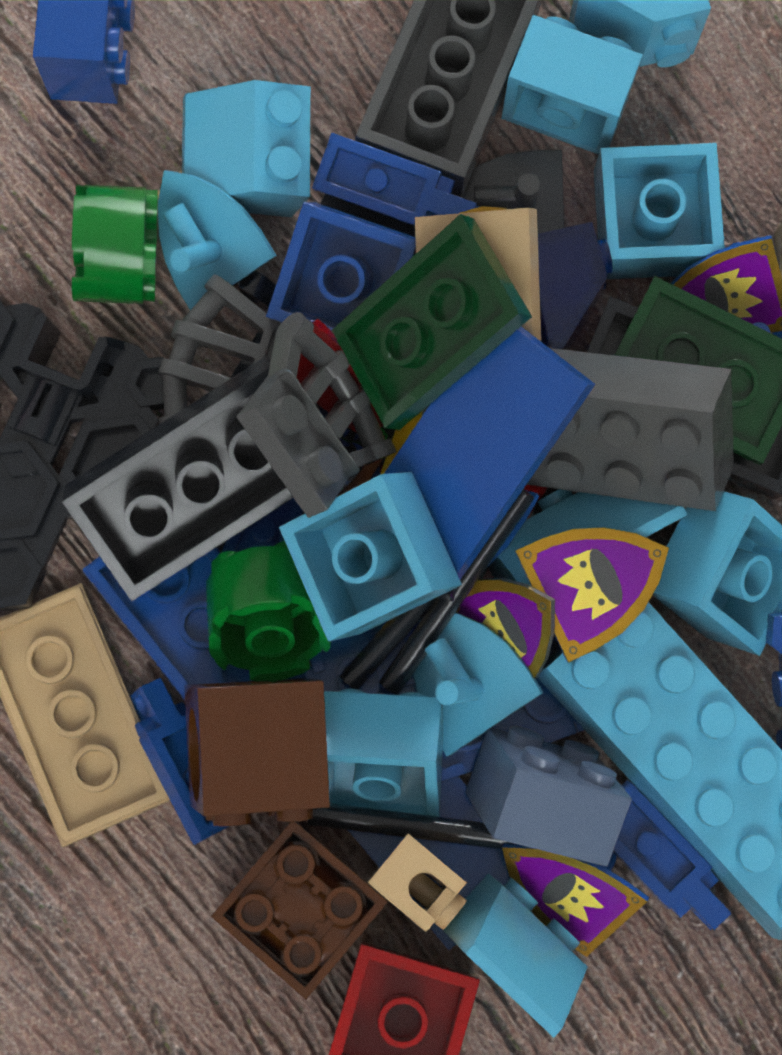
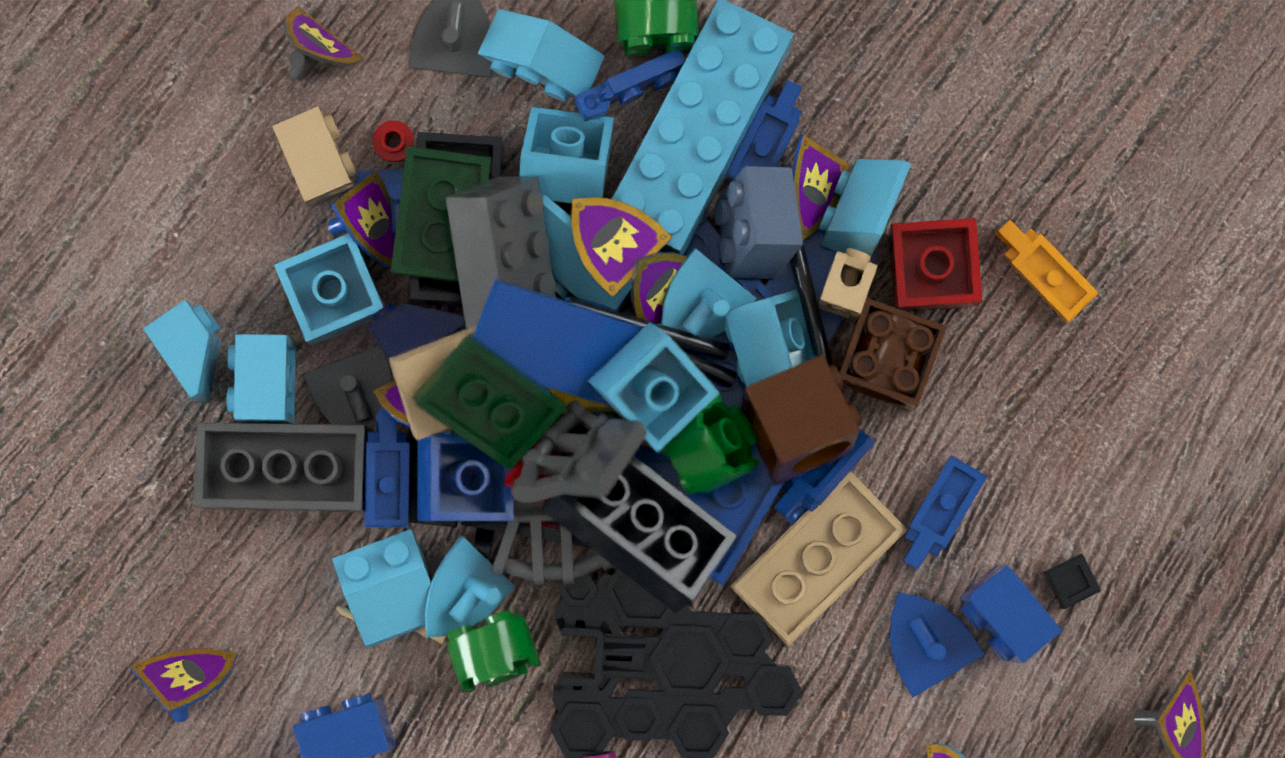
camera: 105 degrees left, 5 degrees up
(68, 903) = (942, 510): none -> blue hinge

